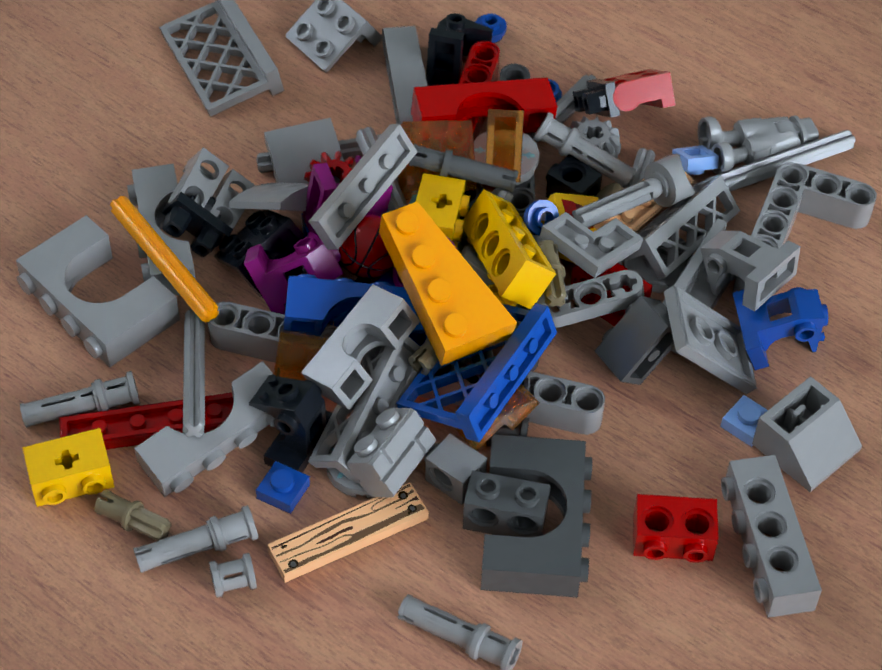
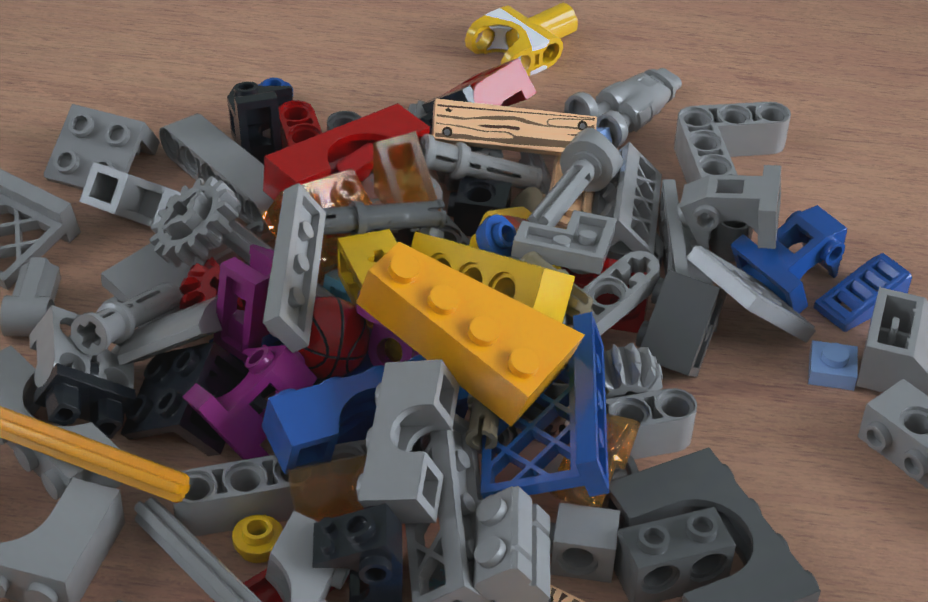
camera: 30 degrees left, 10 degrees down
(215, 131) = (31, 297): none -> light grey piece
(242, 176) = (117, 321): none -> light grey pin
(246, 358) = (255, 537): none -> yellow plate
(339, 119) = (194, 221): none -> light grey gear
(346, 99) = (125, 194): none -> light grey arch
(479, 117) = (360, 161): none -> red tile
(568, 360) = (631, 371): none -> light grey gear
(627, 128) = (506, 127): none -> light nougat tile
(675, 520) = (859, 499): red brick -> none
(717, 48) = (530, 39): none -> yellow connector
(803, 154) = (666, 116): light grey axle -> none
(829, 362) = (875, 273): none -> blue slope

